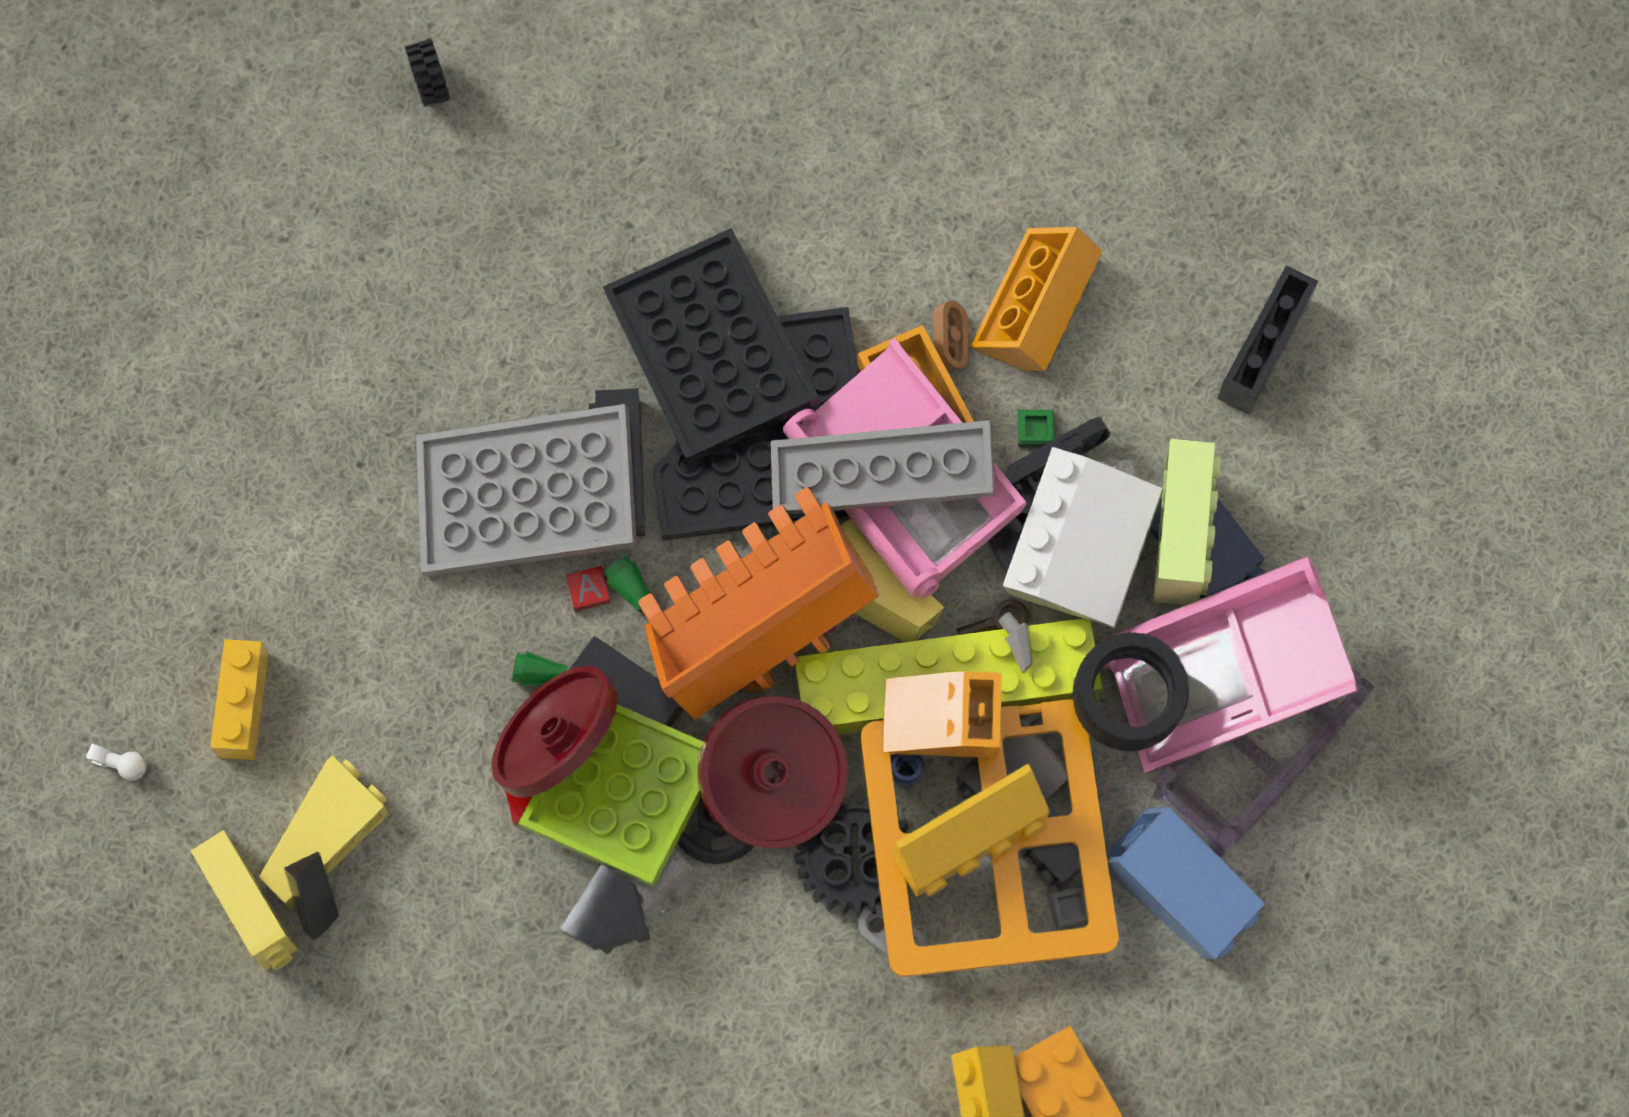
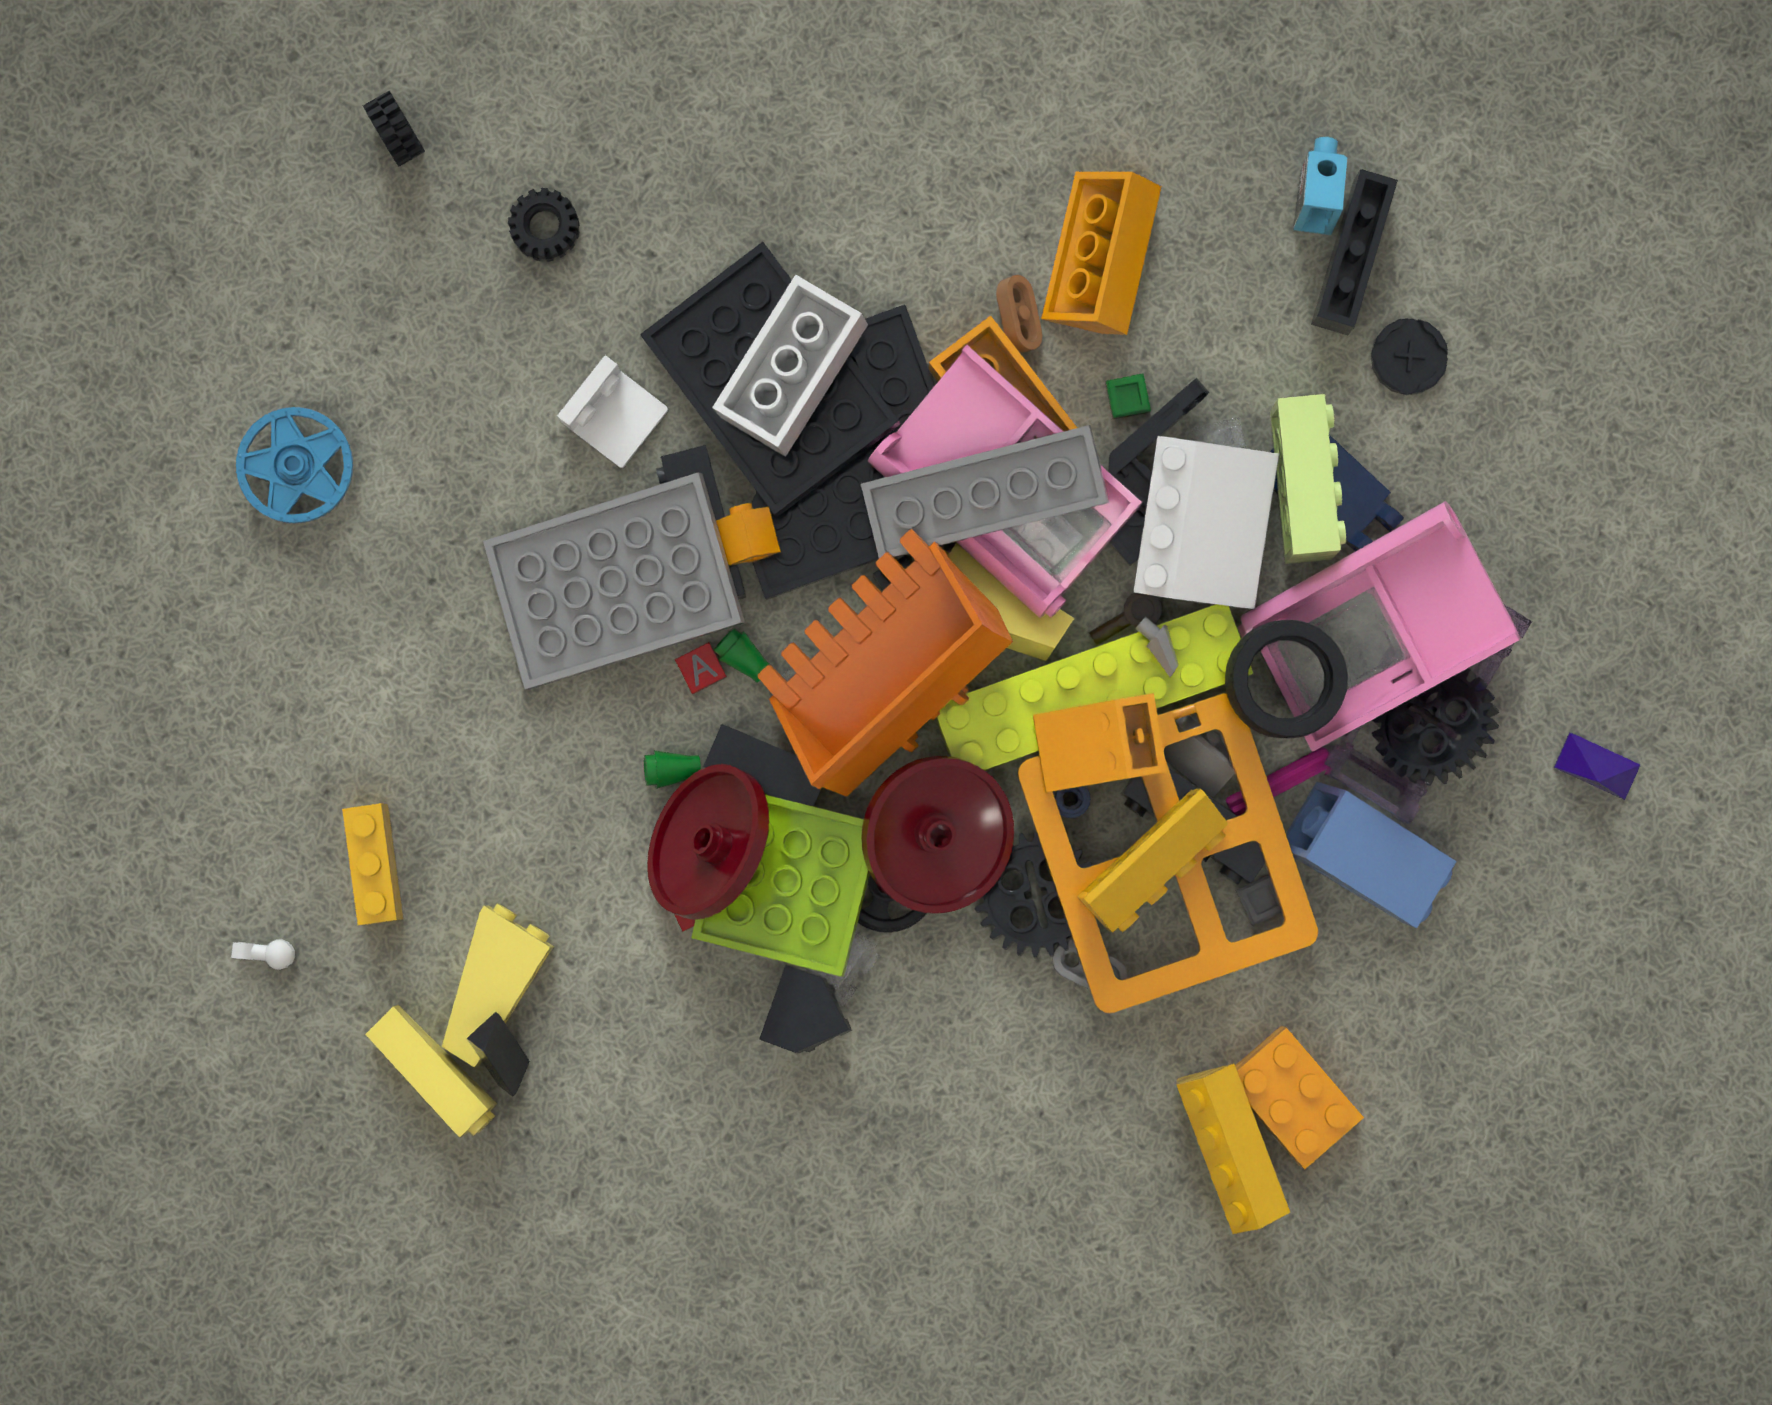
camera: 15 degrees left, 15 degrees up
(263, 336) = (294, 465): none -> dark azure wheel
(536, 161) = (530, 206): none -> black tyre
(560, 347) = (612, 413): none -> white bracket
(658, 471) = (748, 534): none -> light orange brick
(730, 328) = (790, 365): none -> white brick
(1118, 797) = (1285, 778): none -> dark pink axle
(1249, 274) = (1321, 188): none -> medium azure torso
(1252, 786) = (1412, 752): none -> black gear
(1303, 444) = (1409, 356): none -> black tile
(1418, 849) = (1597, 766): none -> dark purple slope

